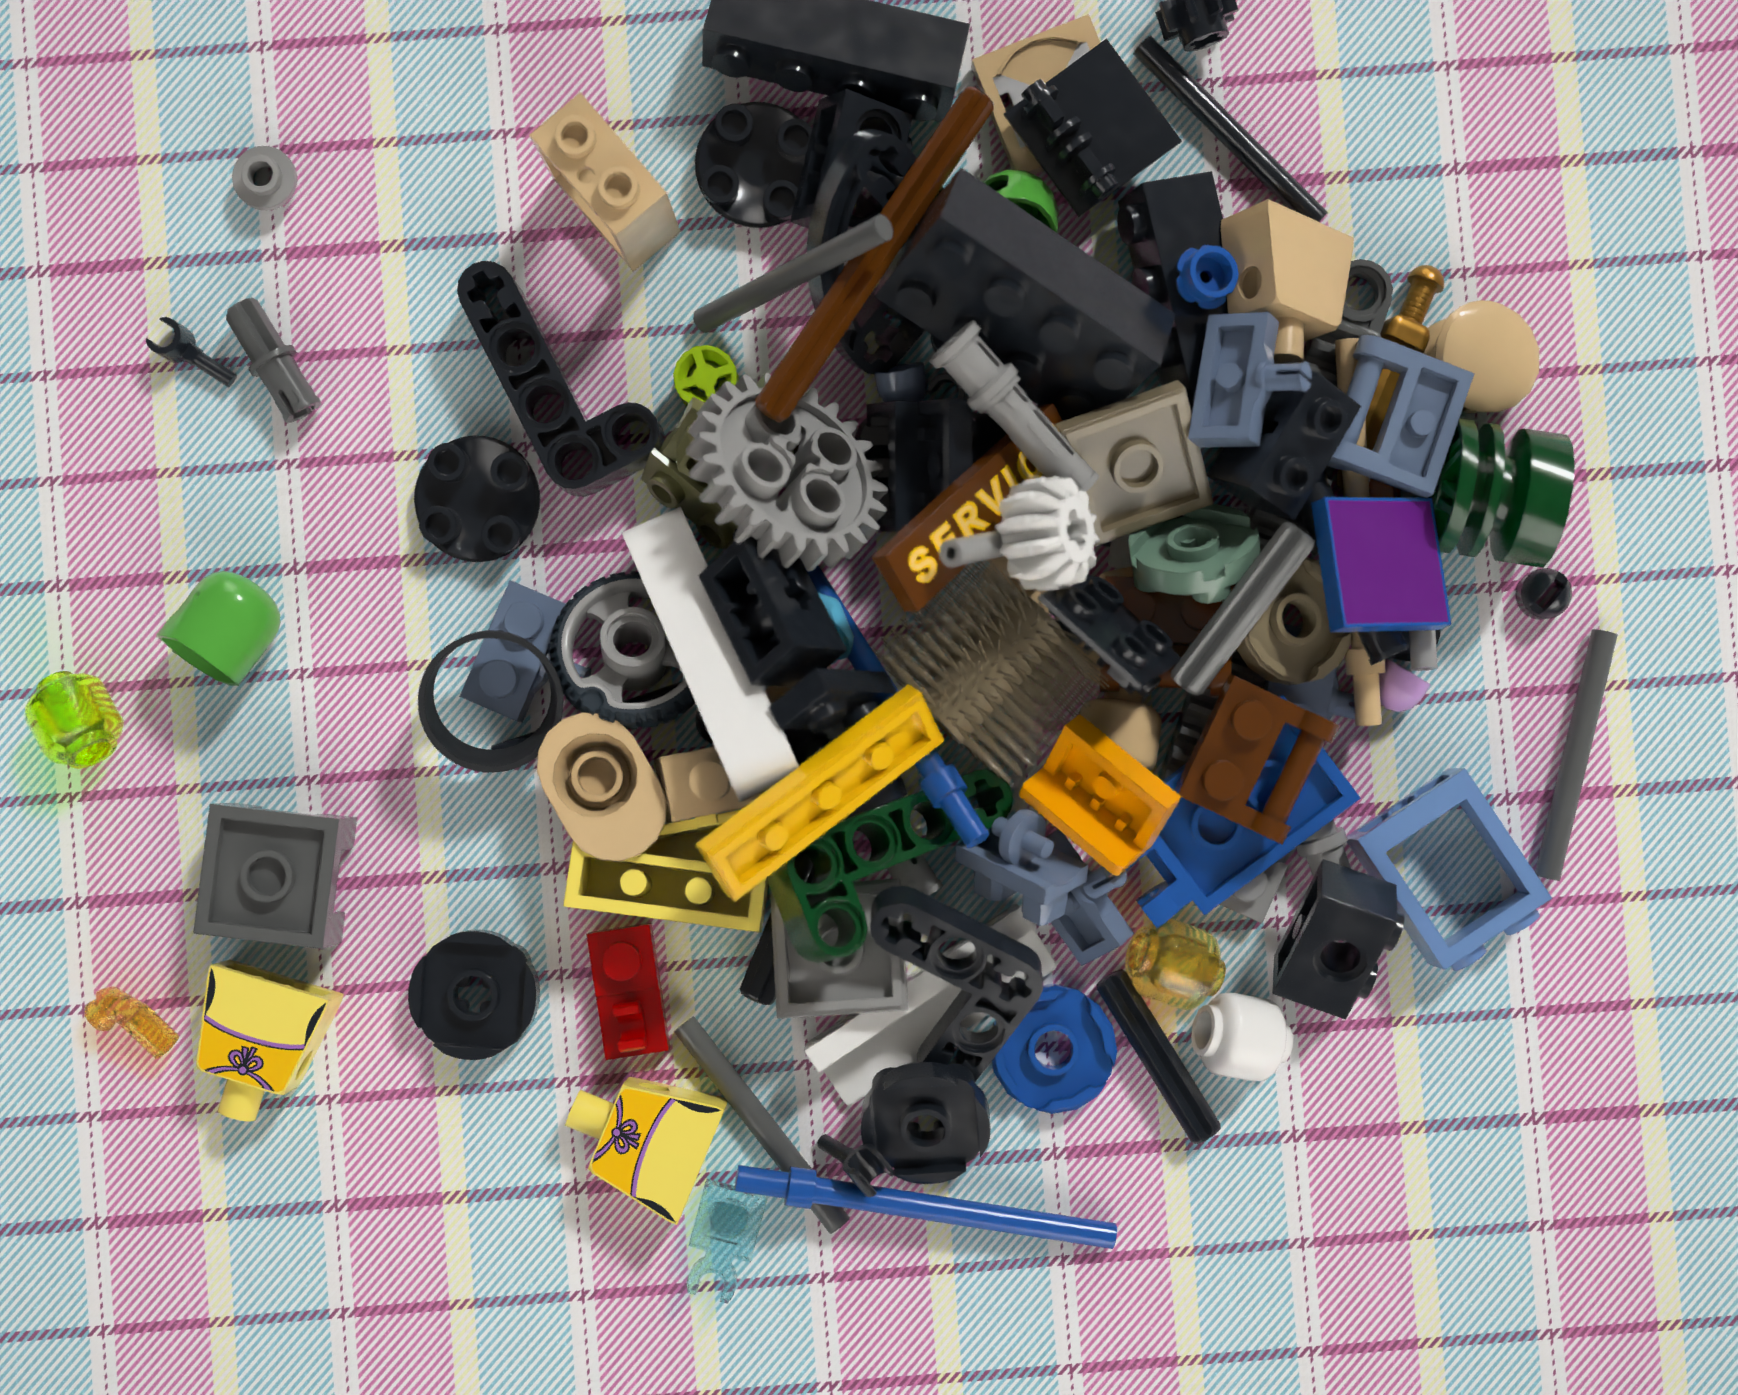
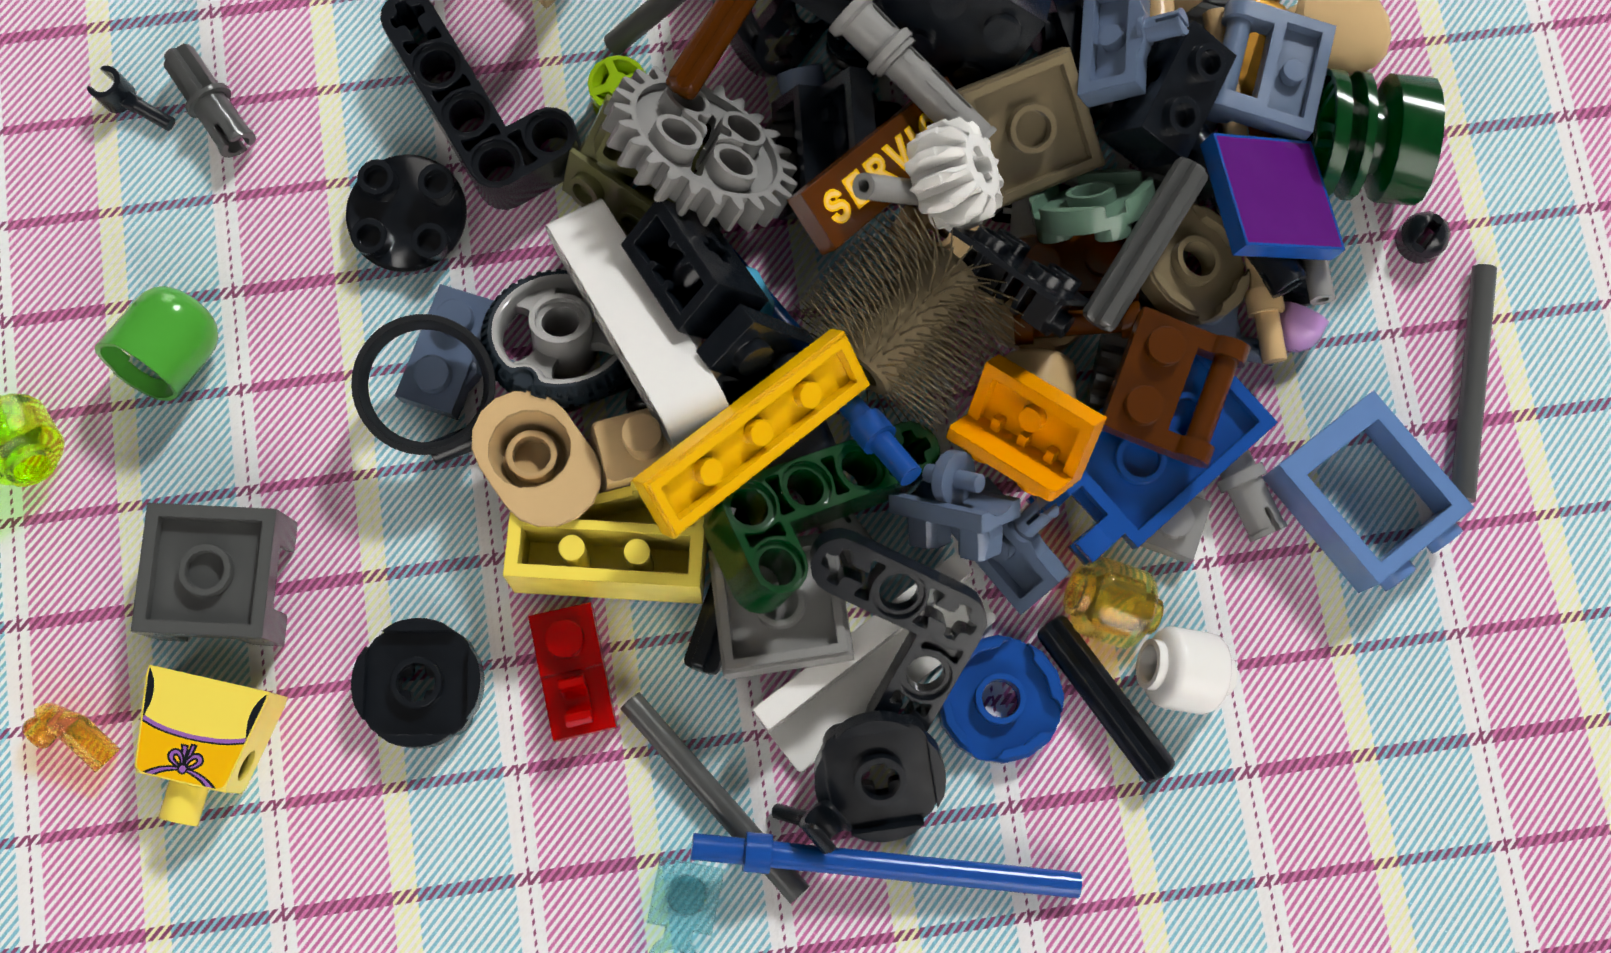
camera: 10 degrees left, 10 degrees down
(649, 1140) = (601, 817): light yellow torso -> none
(1337, 907) = (1267, 527): black brick -> none

